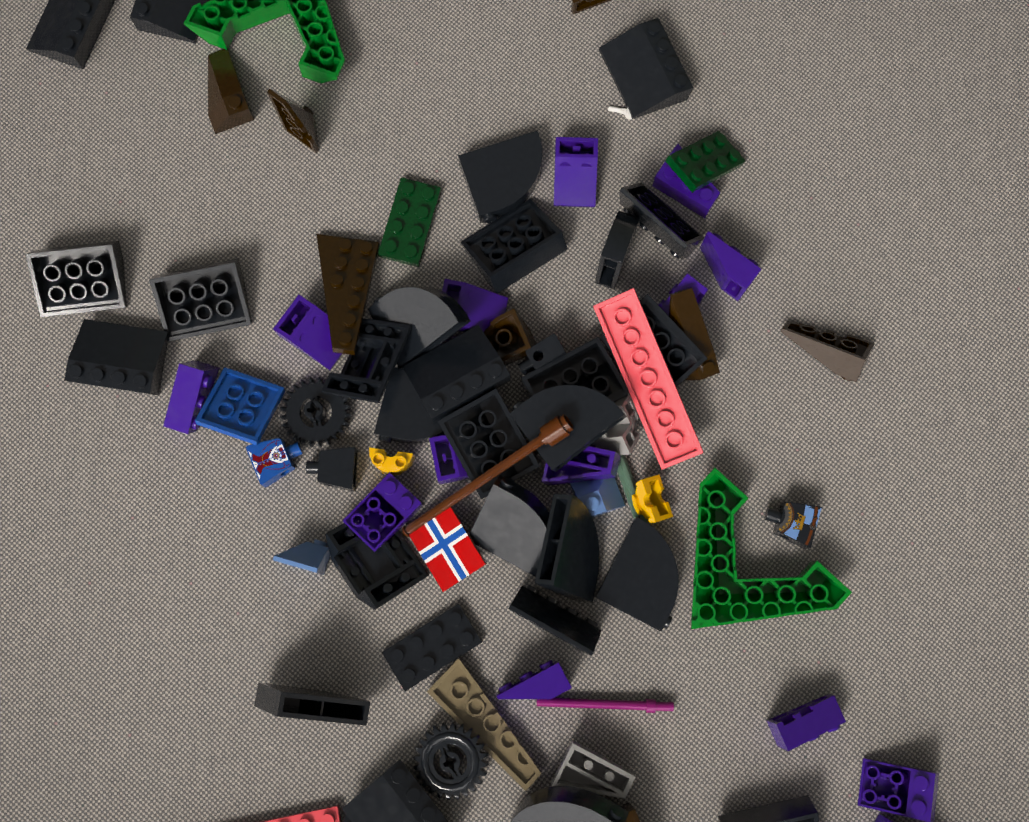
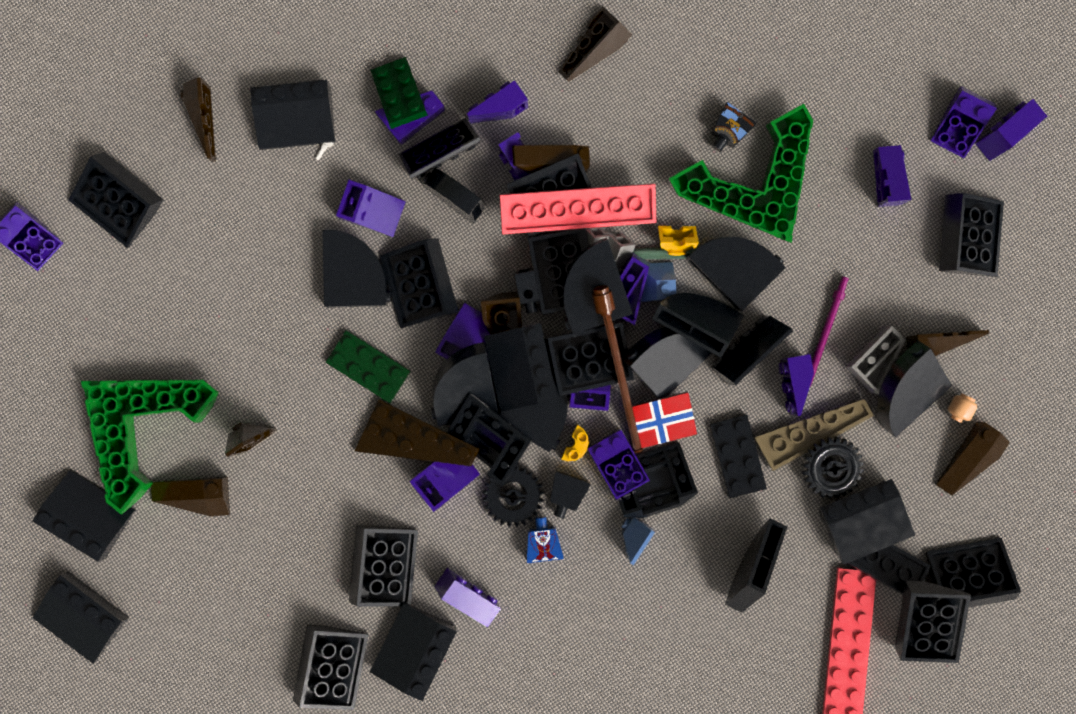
camera: 75 degrees left, 10 degrees up
(240, 406) = (489, 558): blue plate -> none

